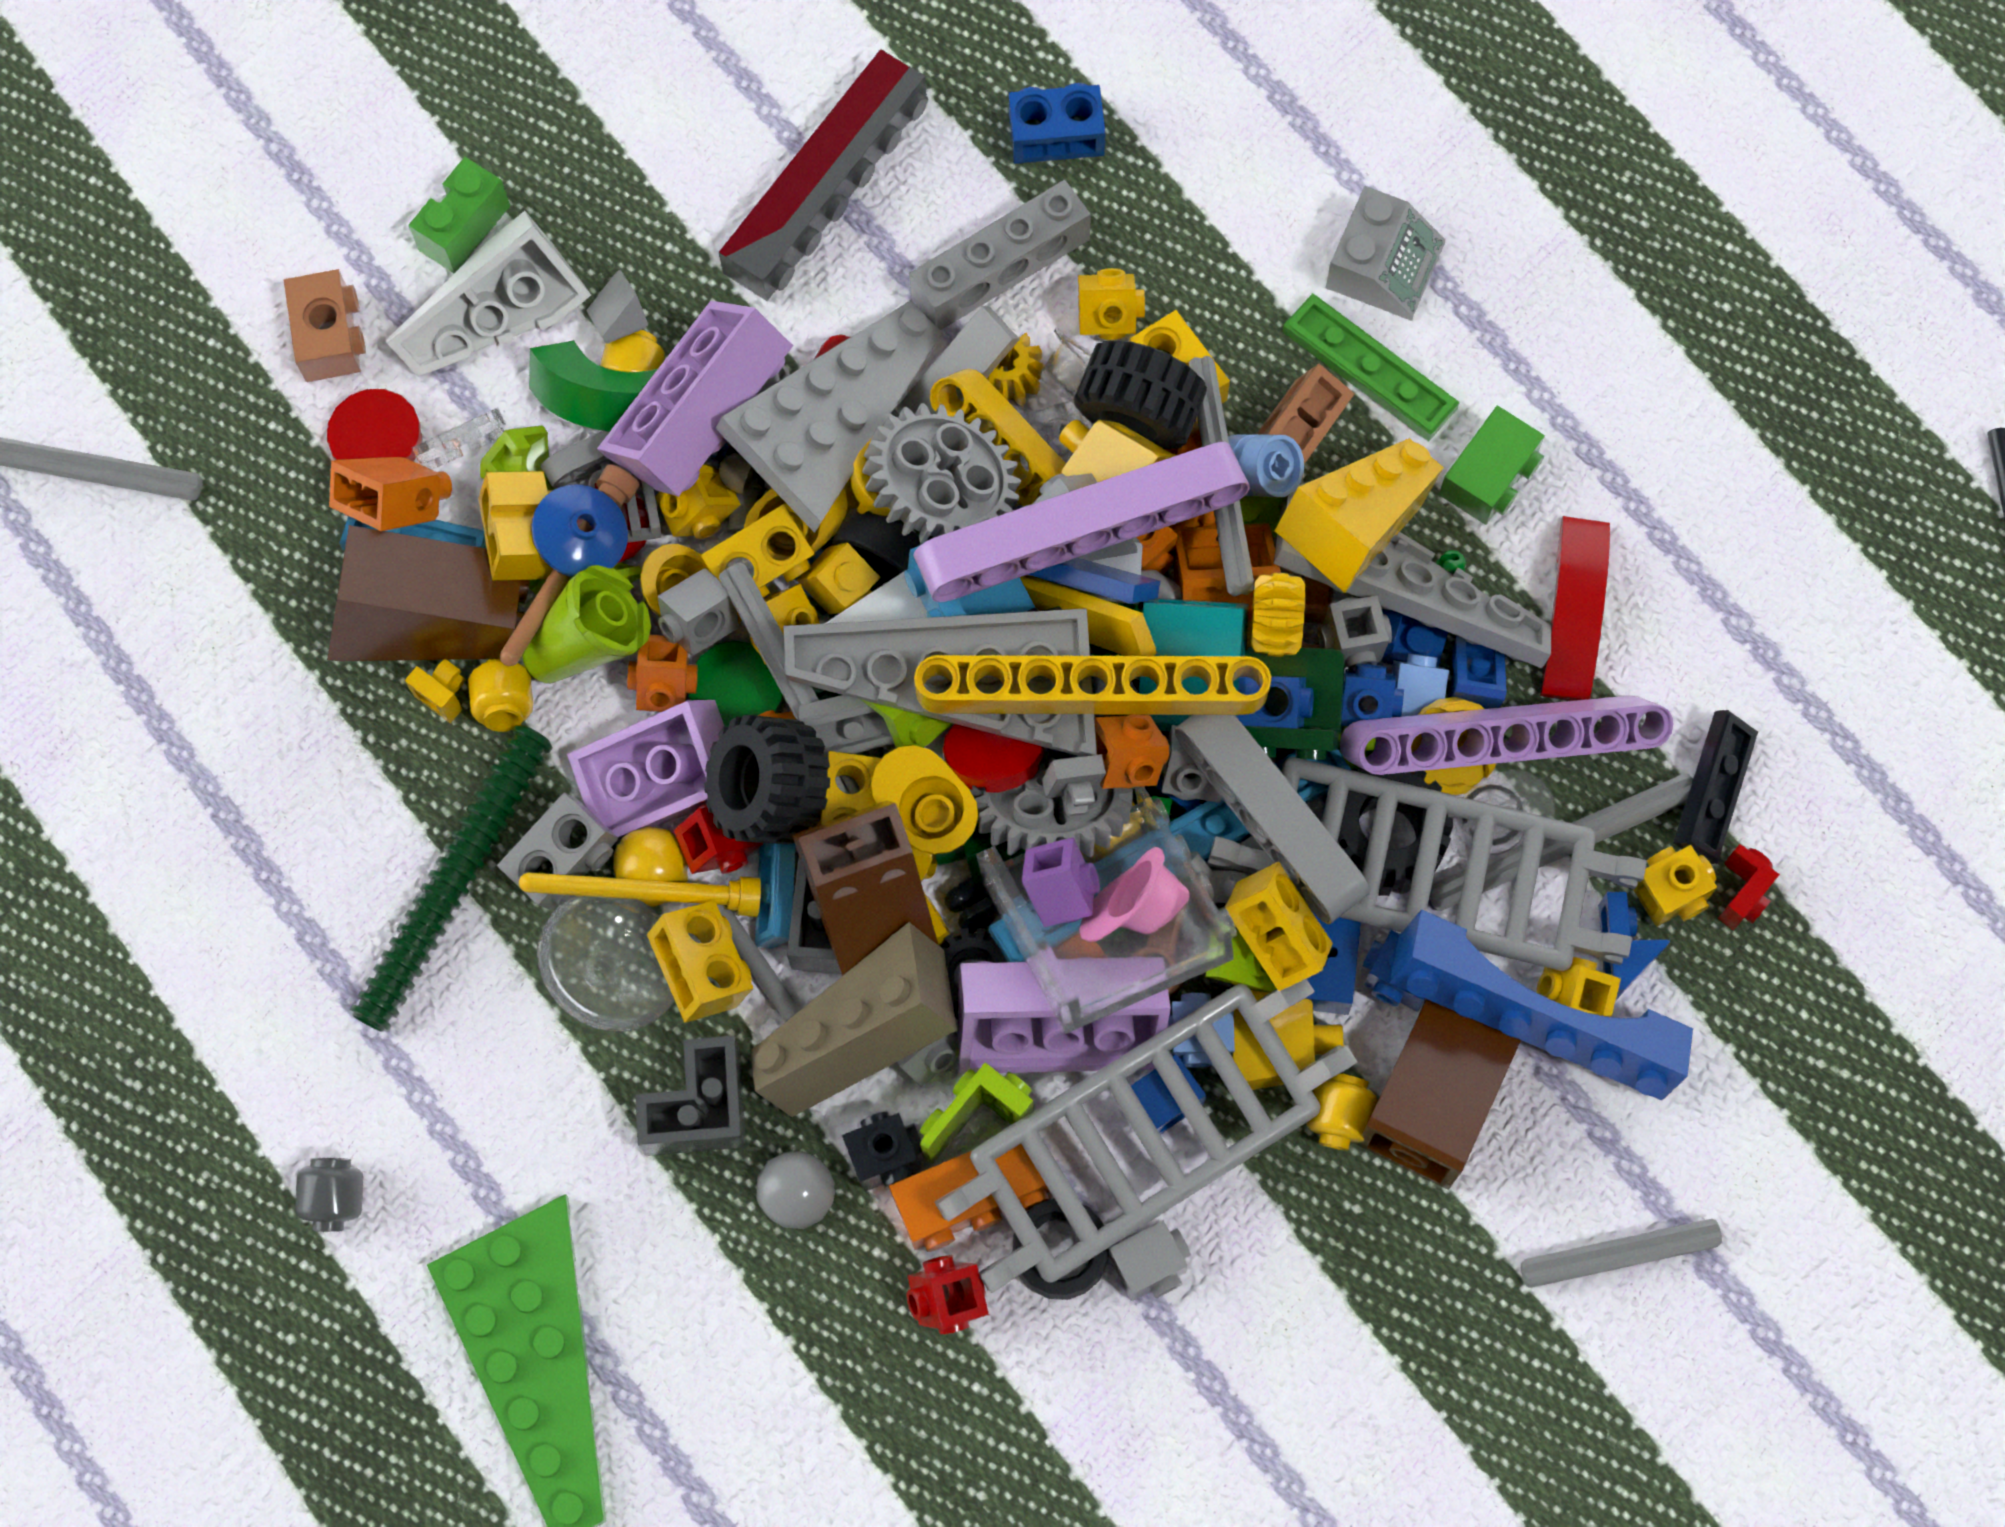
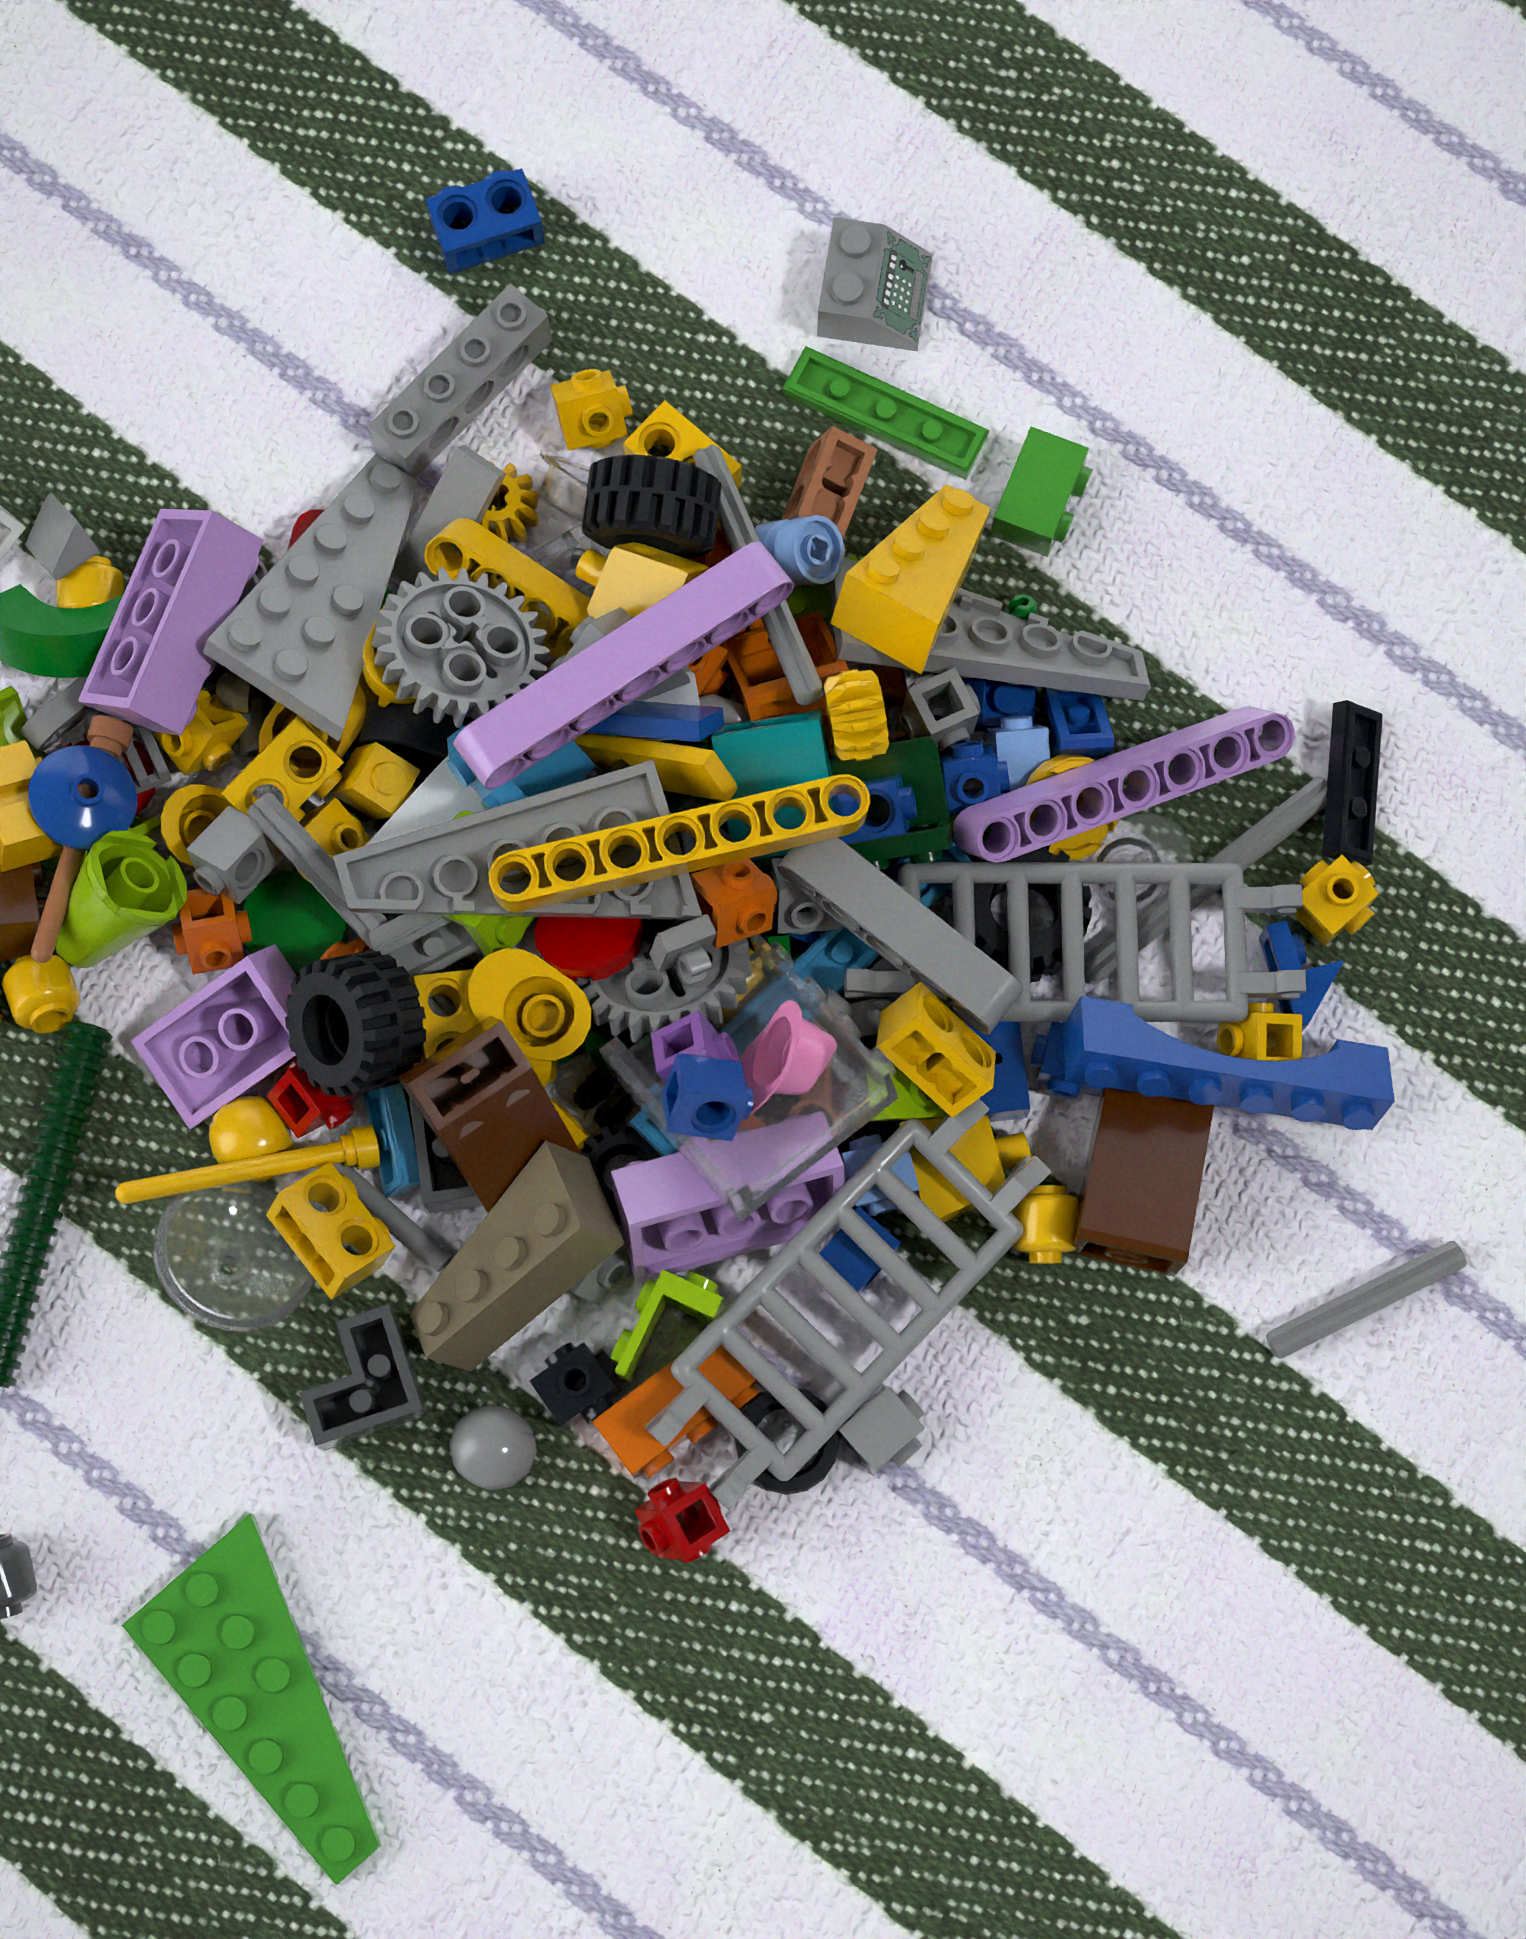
camera: 15 degrees left, 5 degrees up
(551, 842) = (138, 1140): light grey brick -> none
(824, 176) = (247, 336): brick -> none
(1060, 914) = (706, 1097): none -> blue brick
(1577, 609) = (1165, 625): red slope -> none
(1750, 901) = (1414, 895): red bracket -> none

